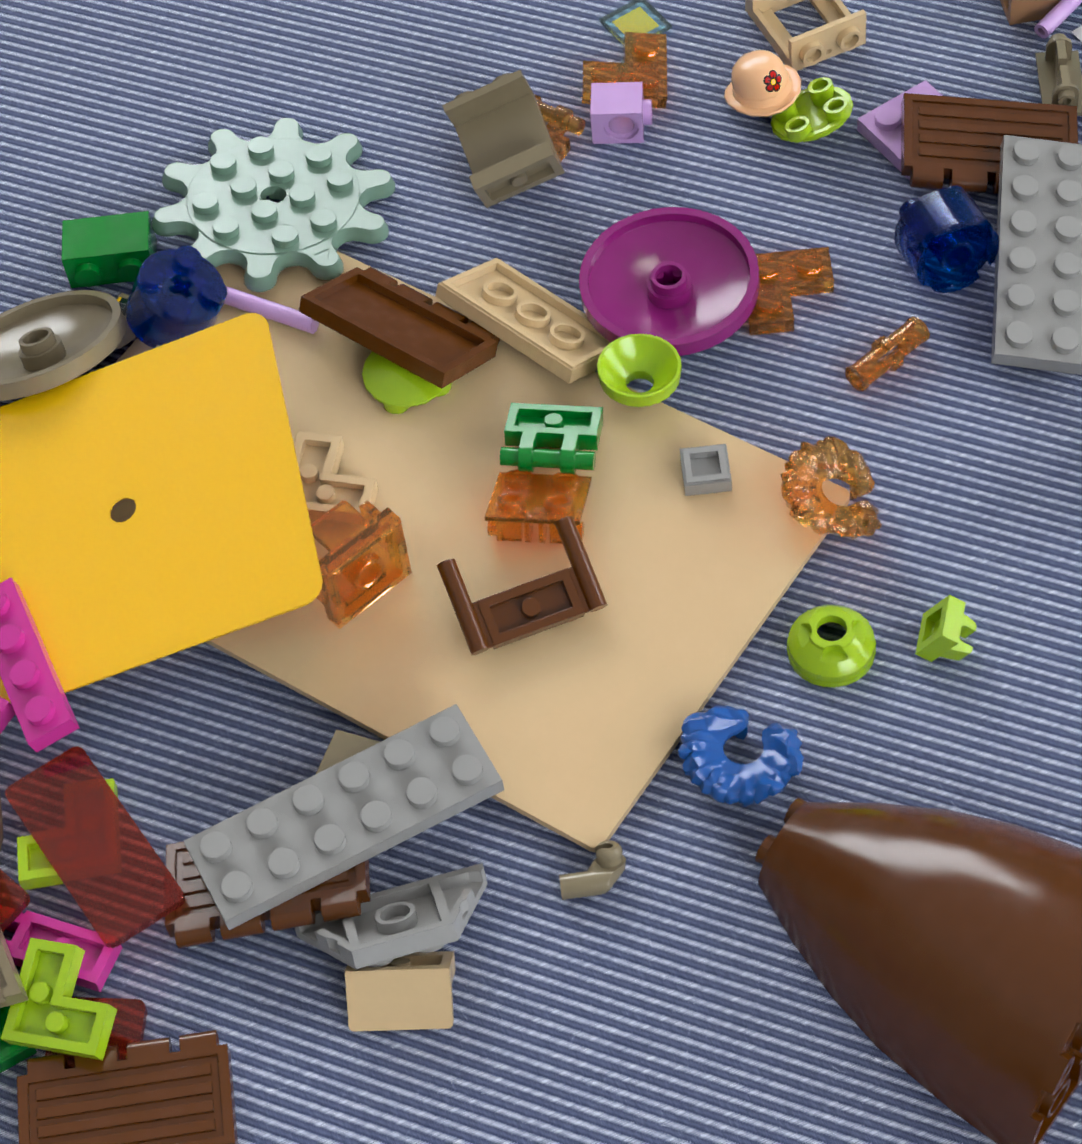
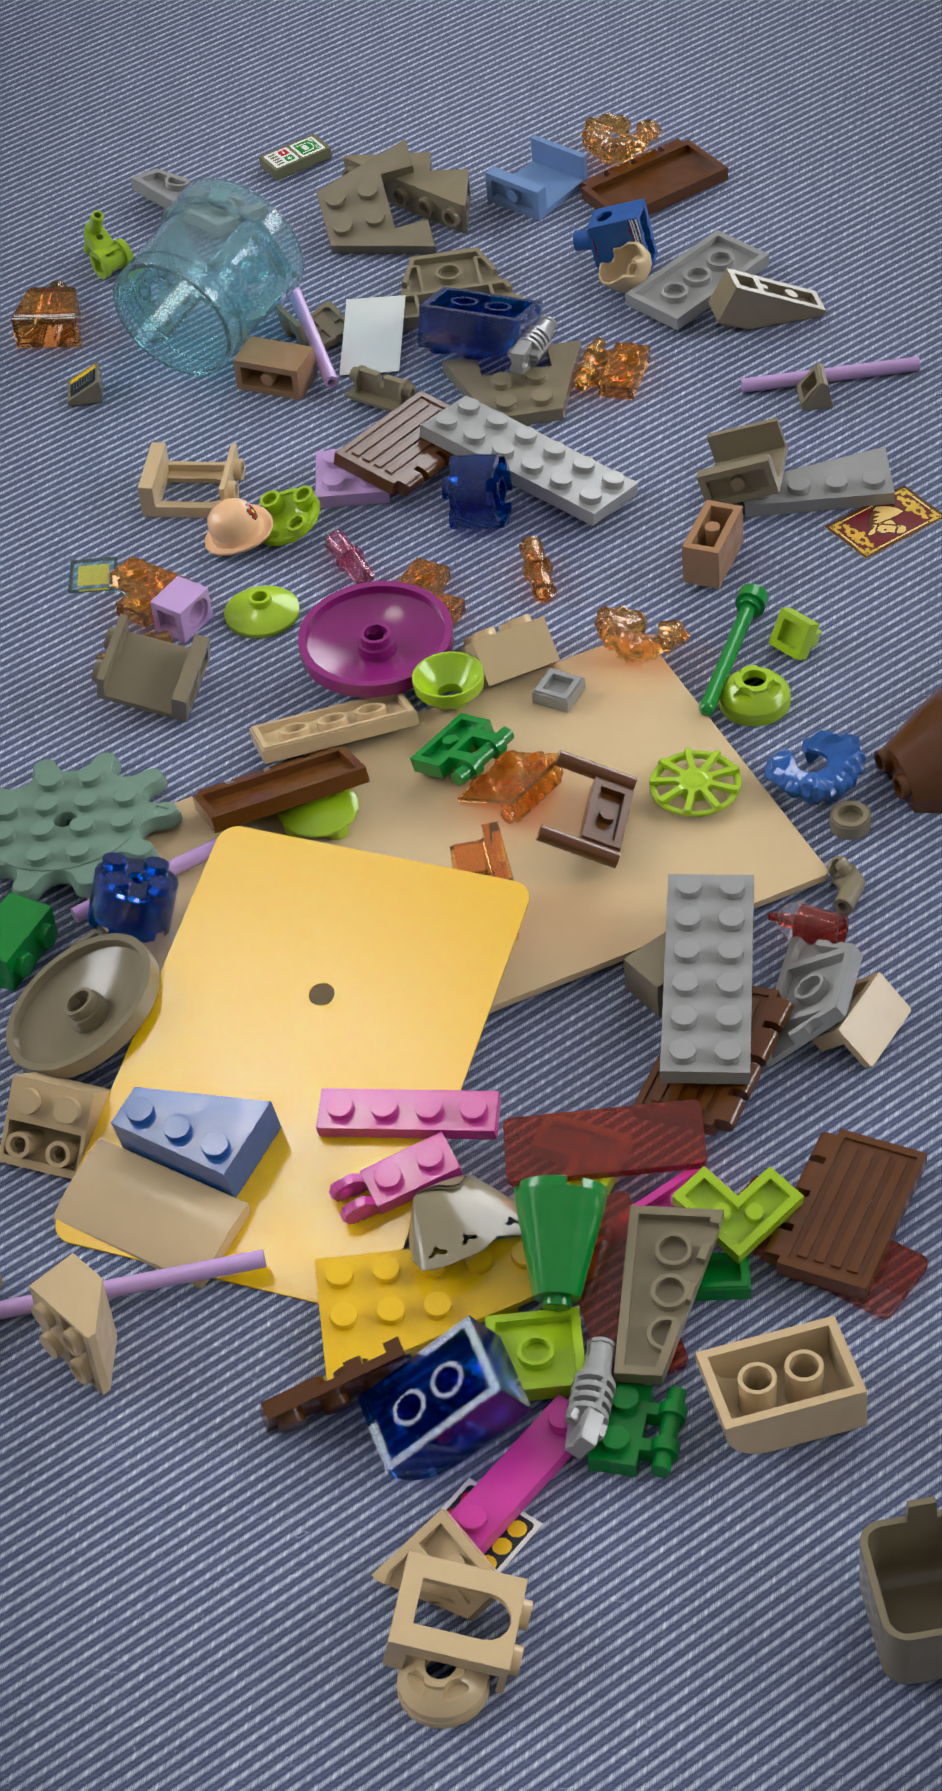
camera: 60 degrees left, 10 degrees down
(508, 872) = (810, 923): none -> clear red piece
(643, 658) = (695, 783): none -> lime wheel
(674, 174) = (262, 611): none -> lime dish
(699, 829) = (850, 820): none -> dark tan tile
(731, 397) = (513, 651): none -> tan slope
(789, 196) = (349, 557): none -> clear pink axle
(964, 565) = (750, 604): none -> green piece
(1019, 480) = (712, 544): none -> medium nougat brick

